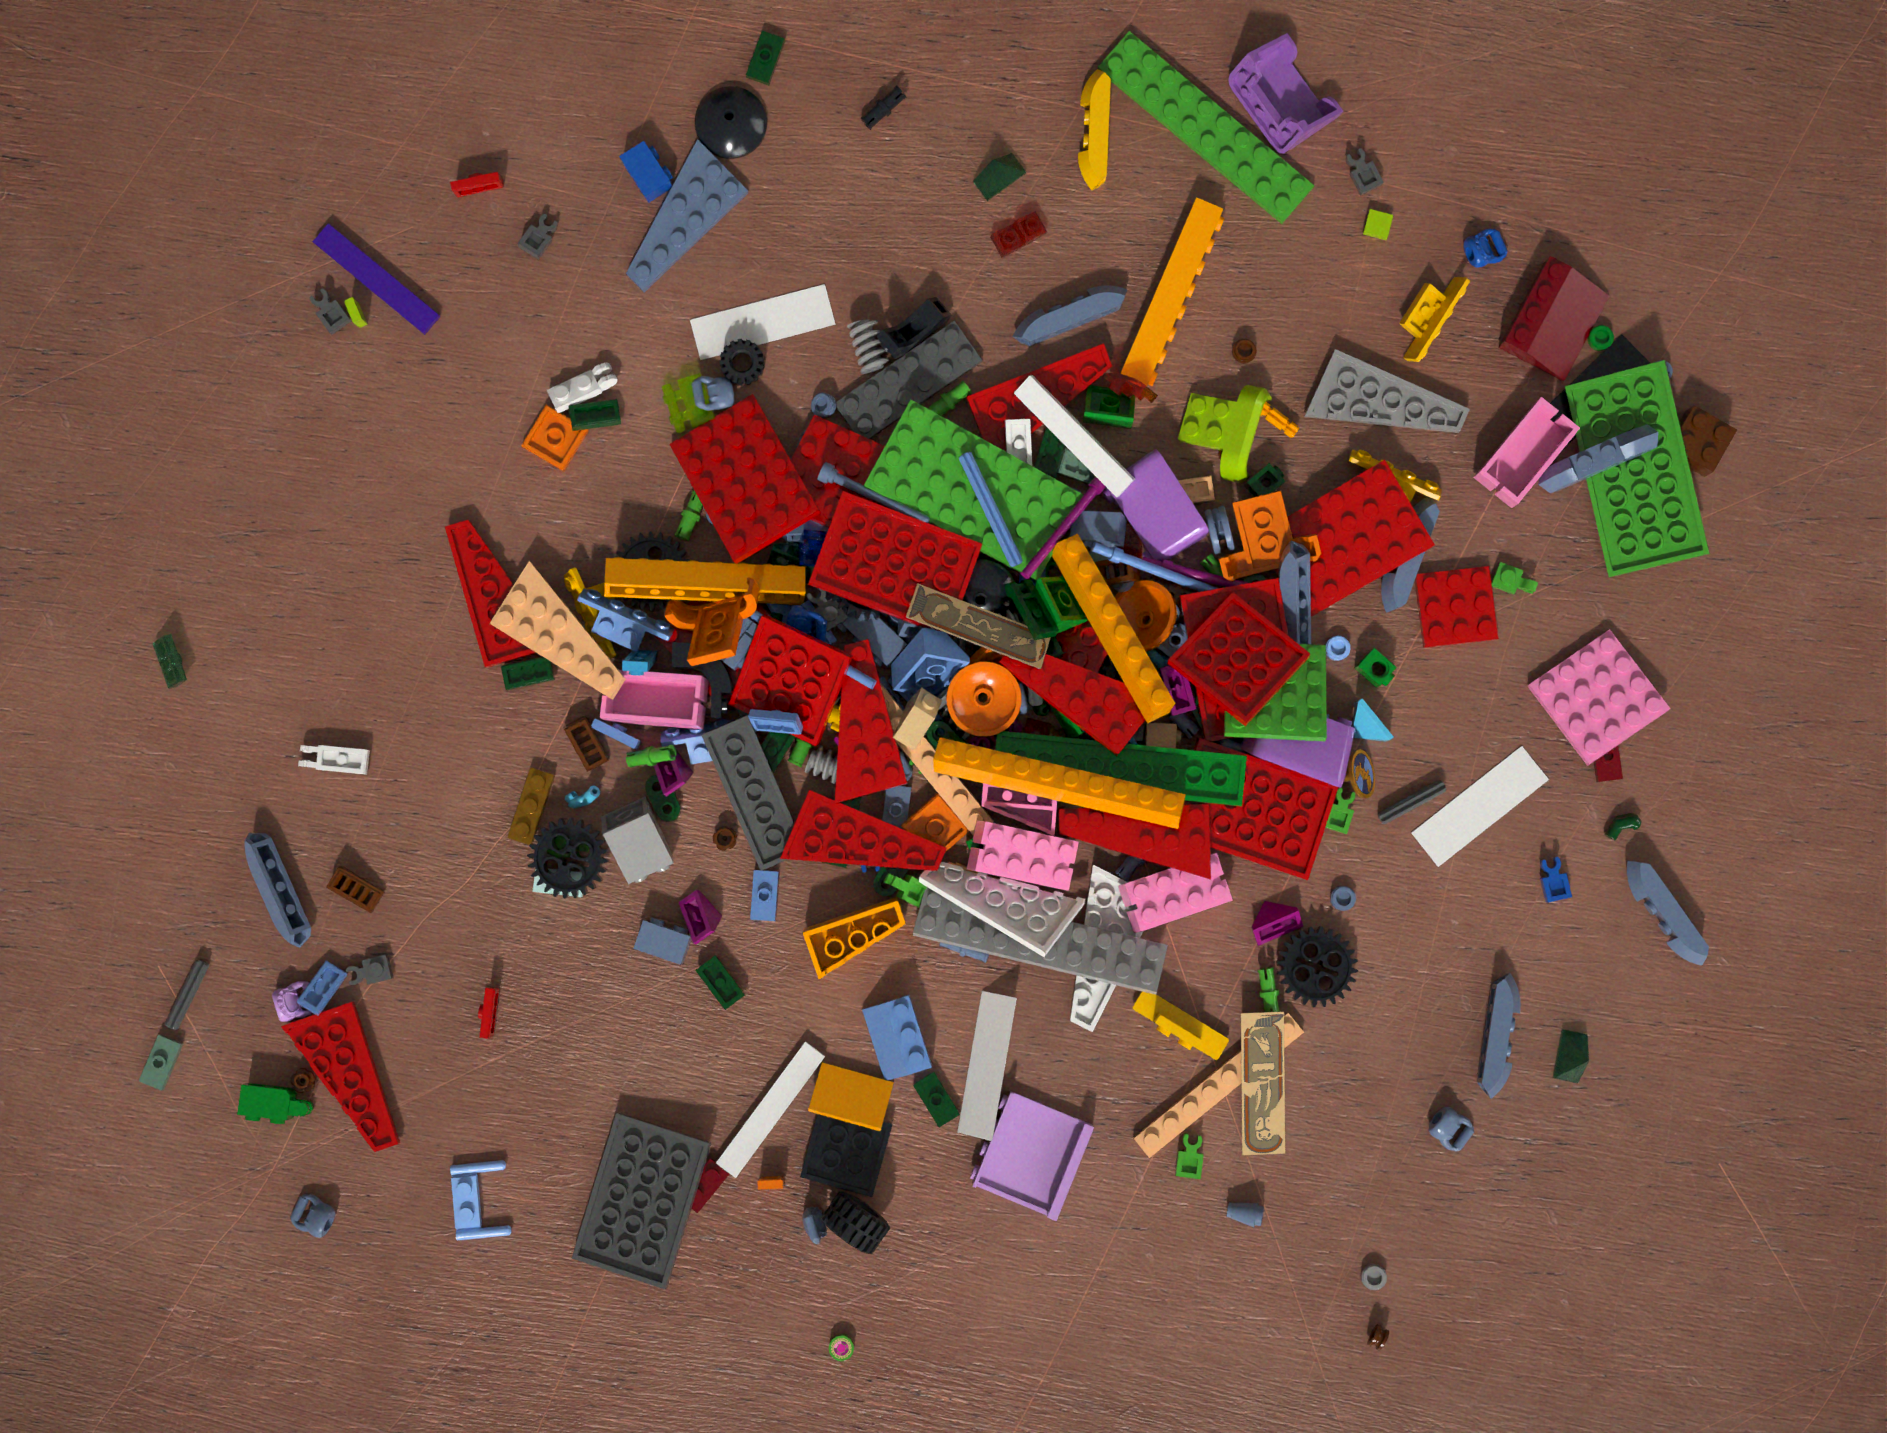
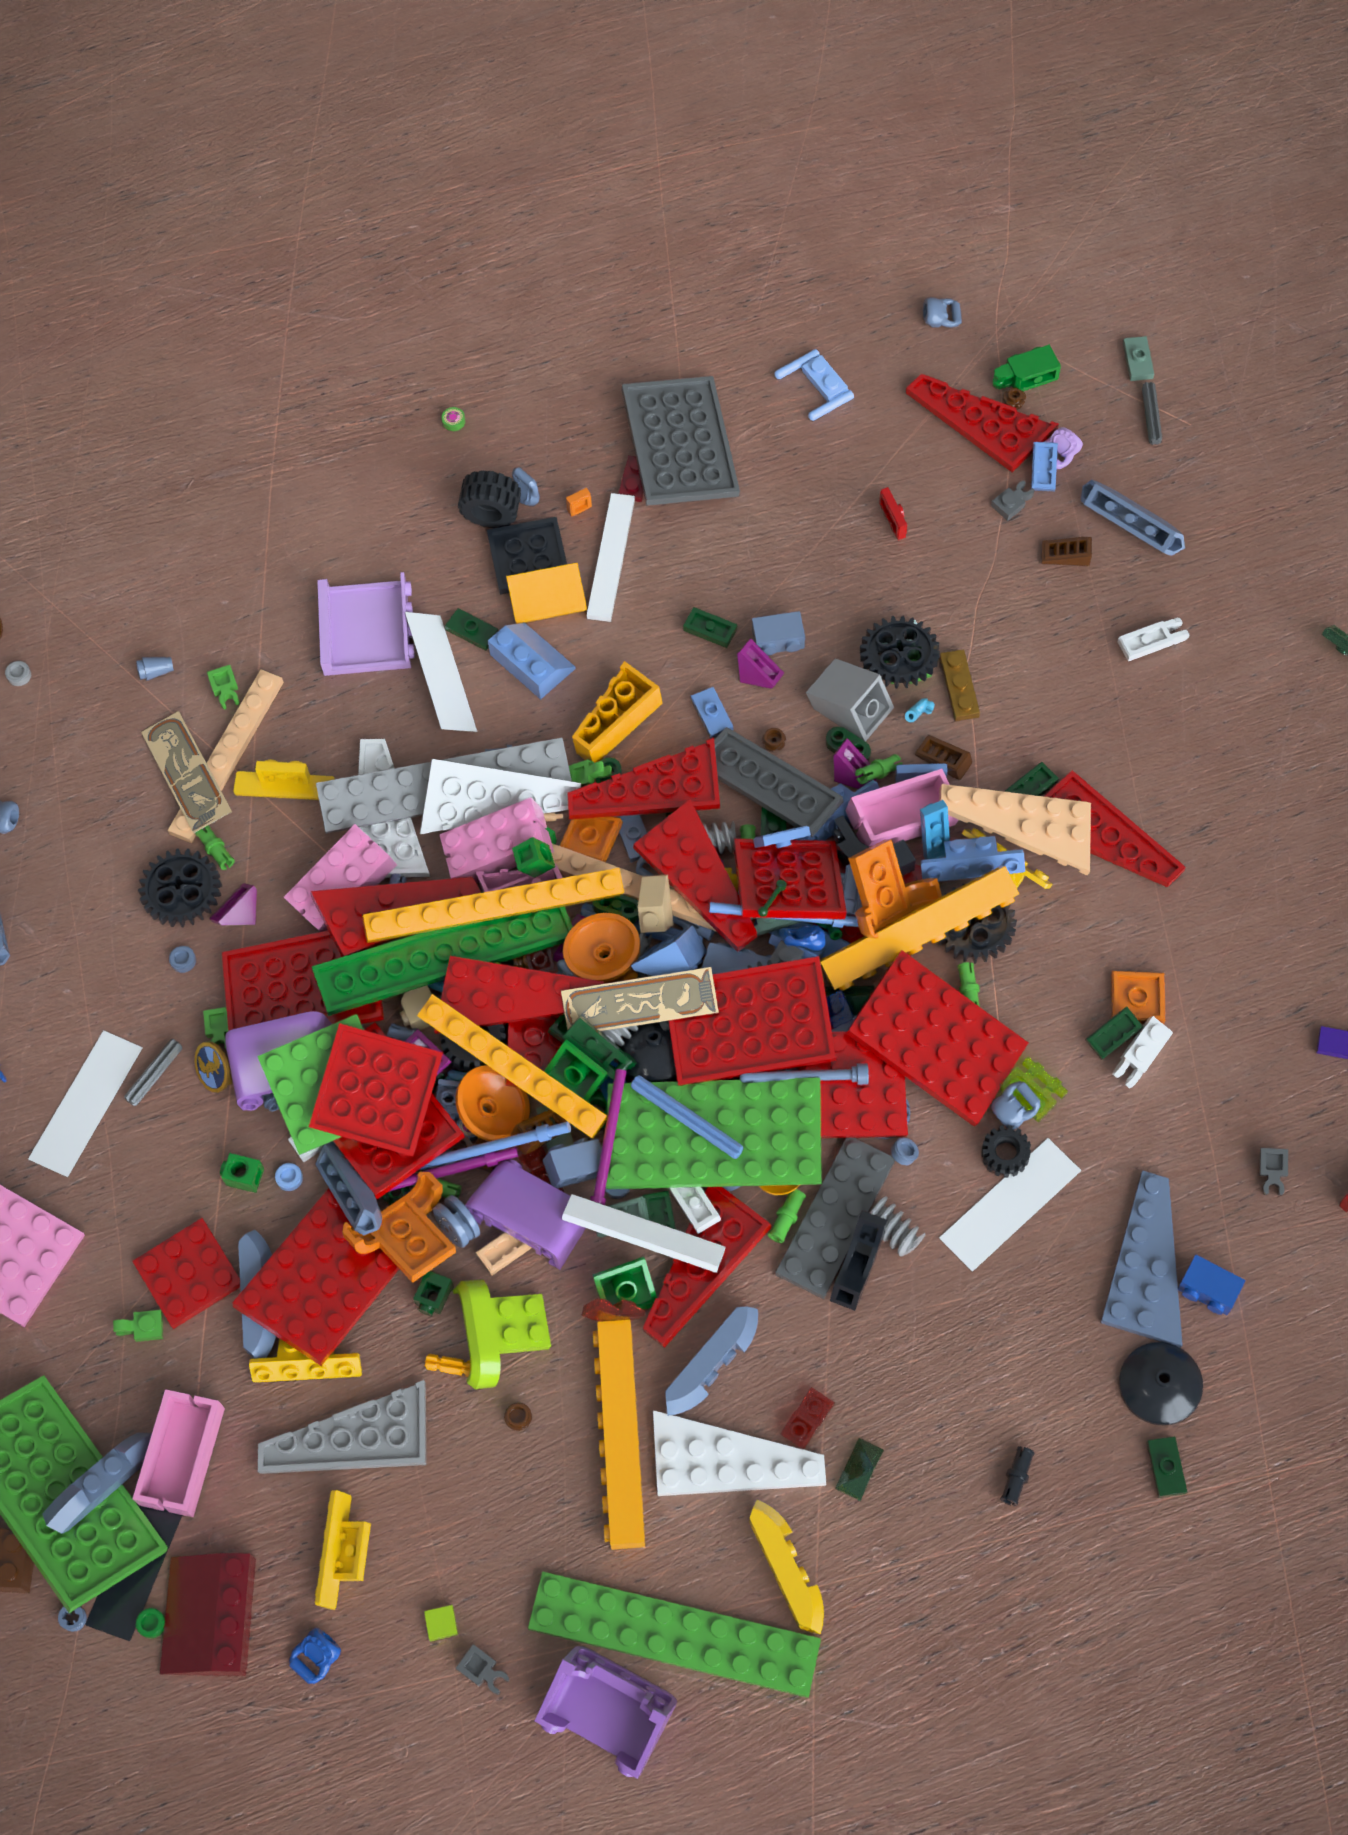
camera: 150 degrees right, 20 degrees down
(803, 670) = (780, 886): none -> dark green hinge
(1001, 811) = (533, 857): none -> green brick
(1106, 239) = (713, 1460): none -> white wing
(1367, 724) = (226, 1119): medium azure slope -> none

